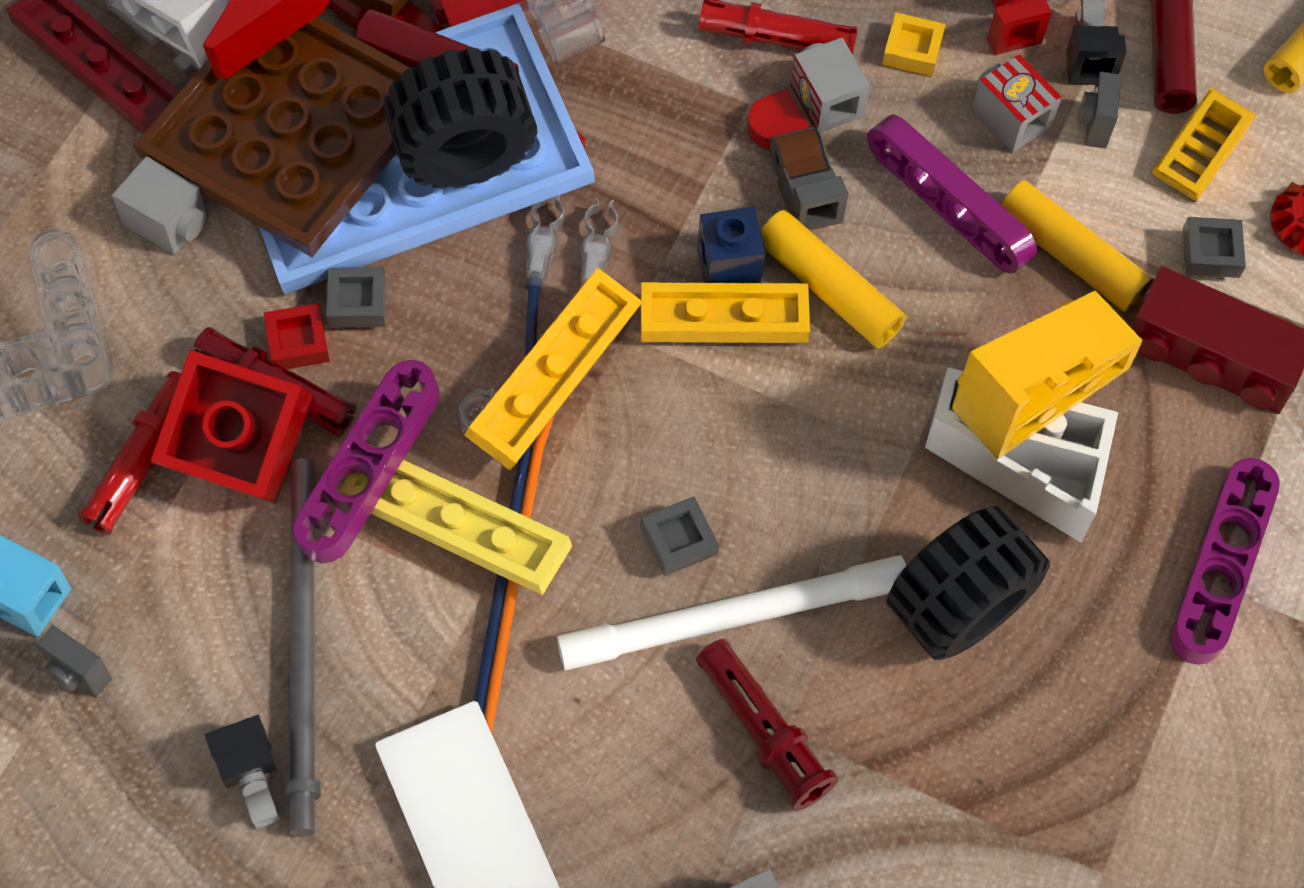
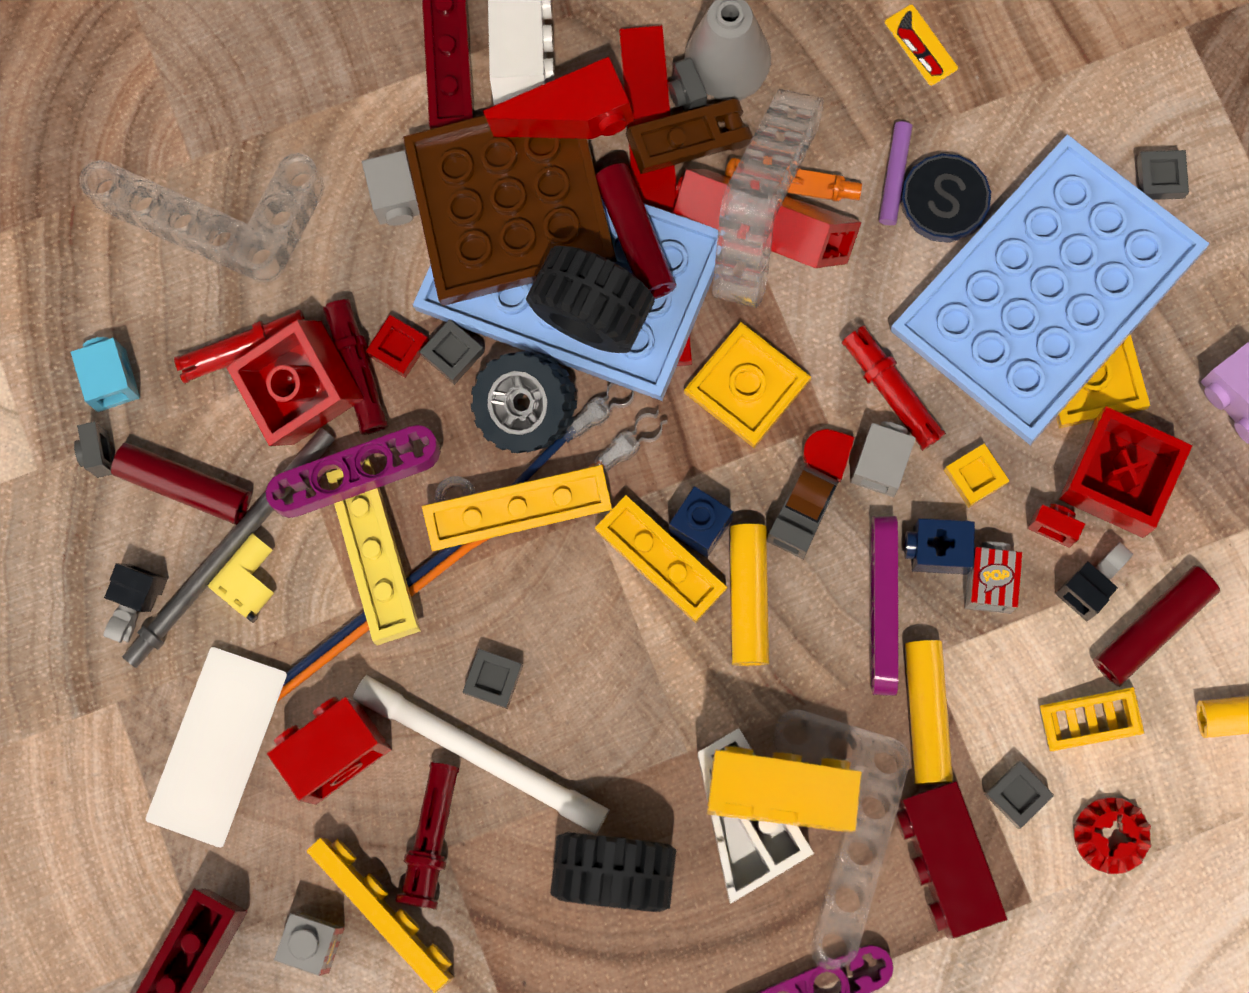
camera: 55 degrees right, 15 degrees up
(194, 622) = (180, 483): none -> dark red piece
(345, 663) = (236, 579): none -> light yellow piece
(470, 243) = (512, 424): none -> black wheel
(595, 716) = (327, 750): none -> red brick
(651, 124) = (747, 385): none -> yellow tile
(816, 831) = (369, 897): none -> yellow plate
(950, 108) = (952, 534): none -> dark blue brick
(1100, 109) = (1045, 634): dark grey plate -> none
(1149, 417) = (872, 832): none -> clear beam

